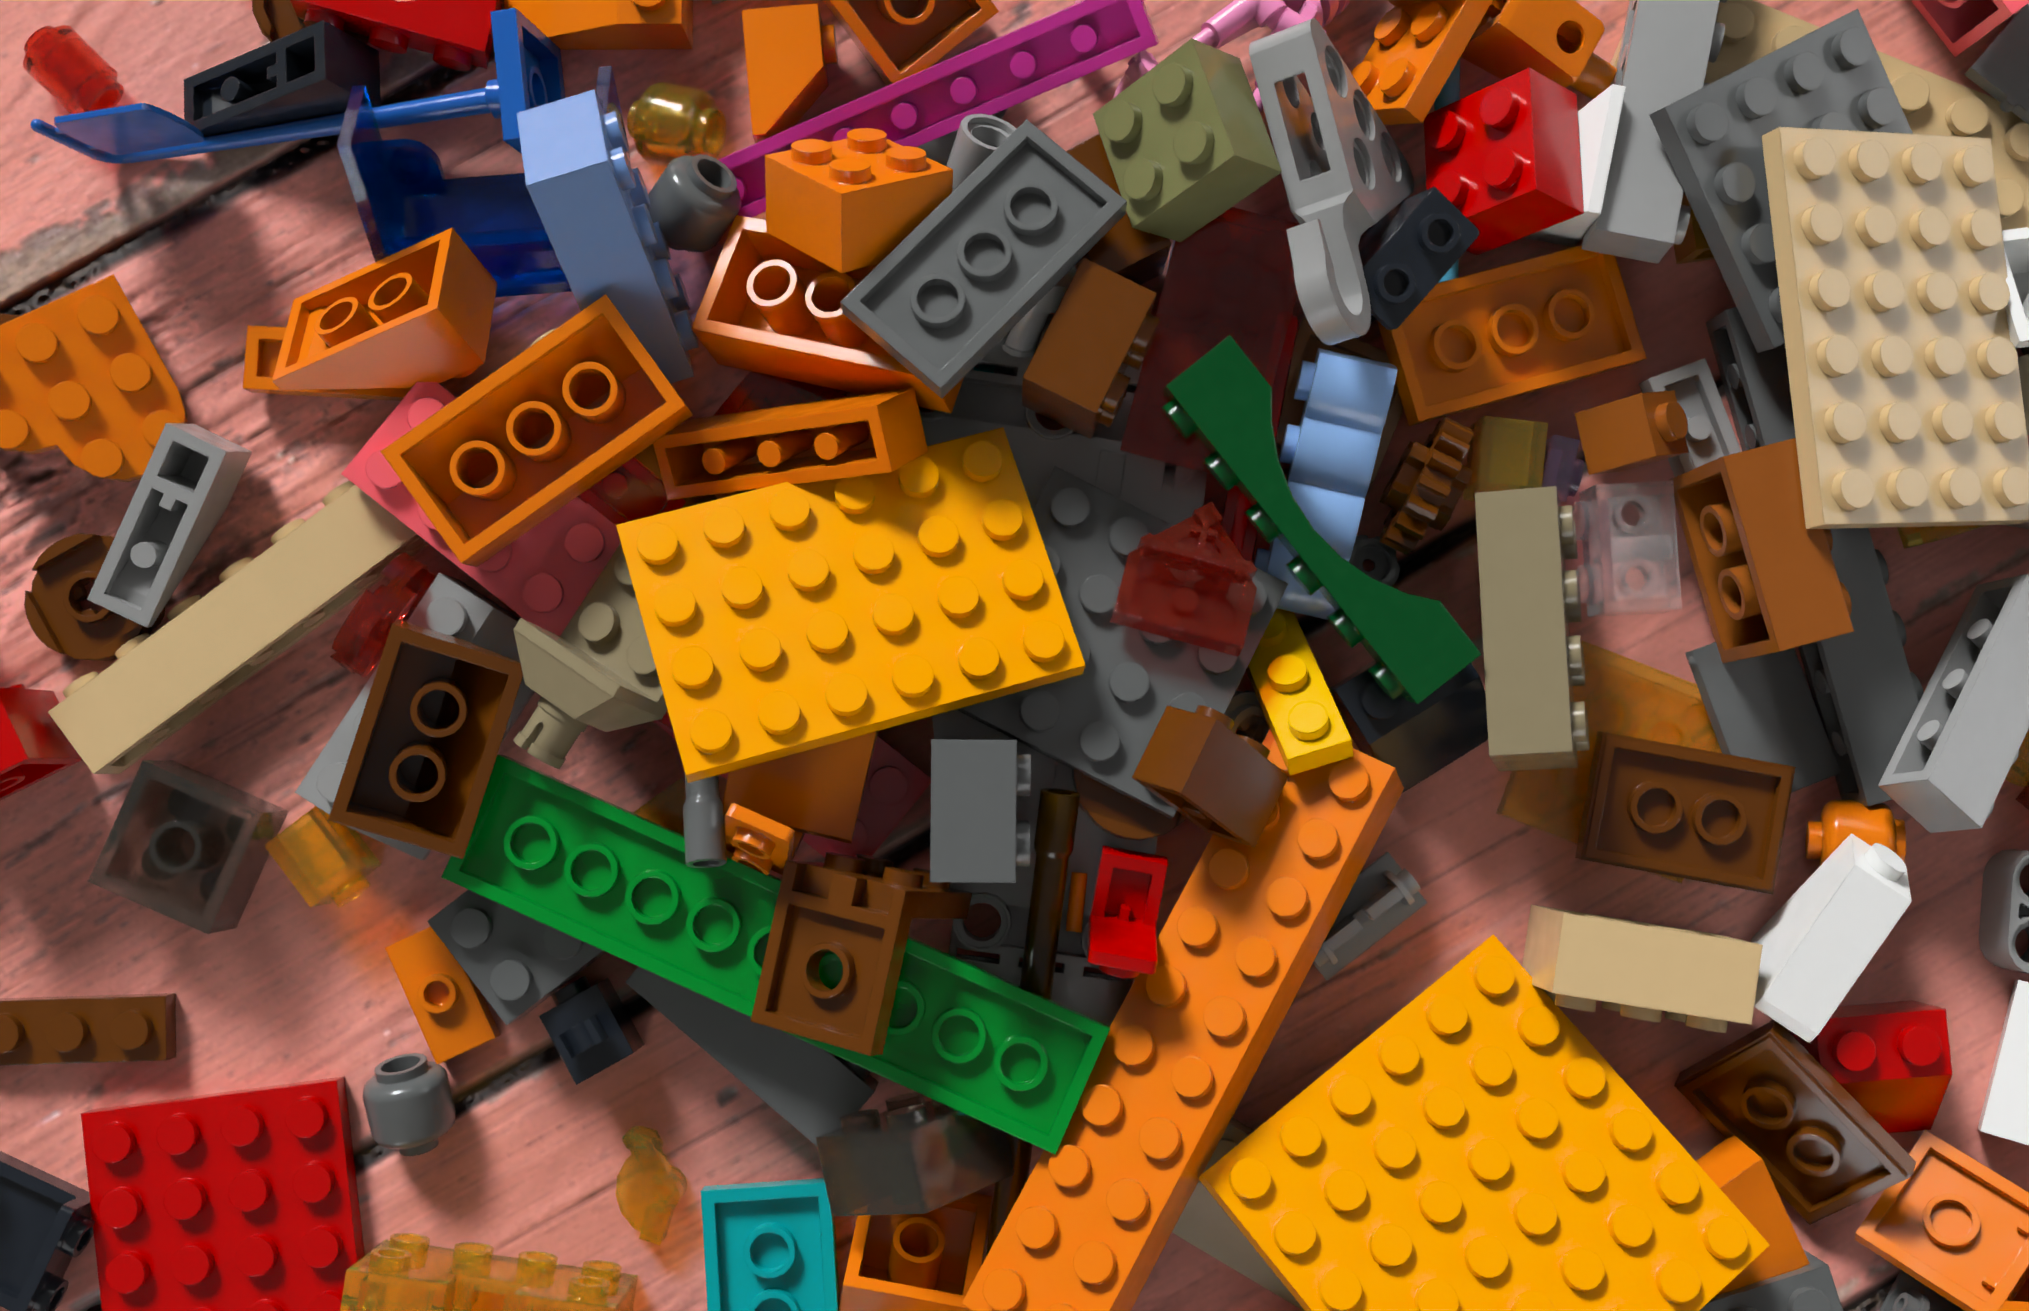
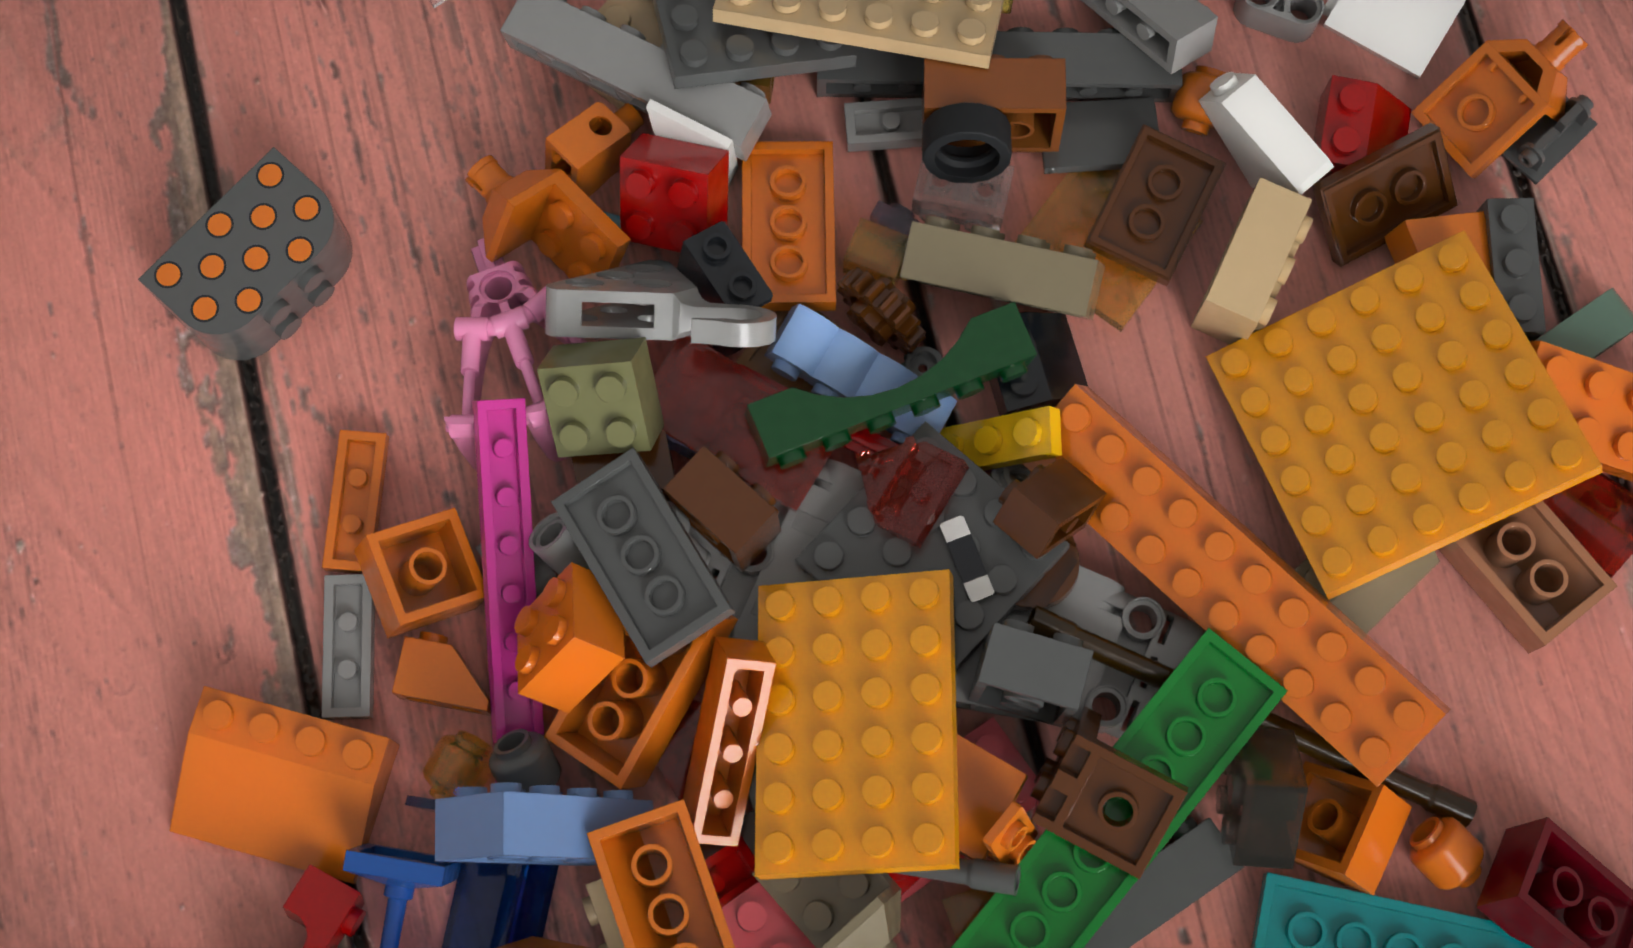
camera: 70 degrees left, 10 degrees down
(1076, 902) = (1110, 633): orange piece -> none
(1113, 687) = (967, 558): none -> sticker
(1126, 912) = (1126, 598): red bracket -> none
(1374, 907) = (1166, 430): light grey hinge -> none
(1632, 432) = (883, 164): dark orange brick -> none
(1717, 522) = (966, 122): none -> black tyre

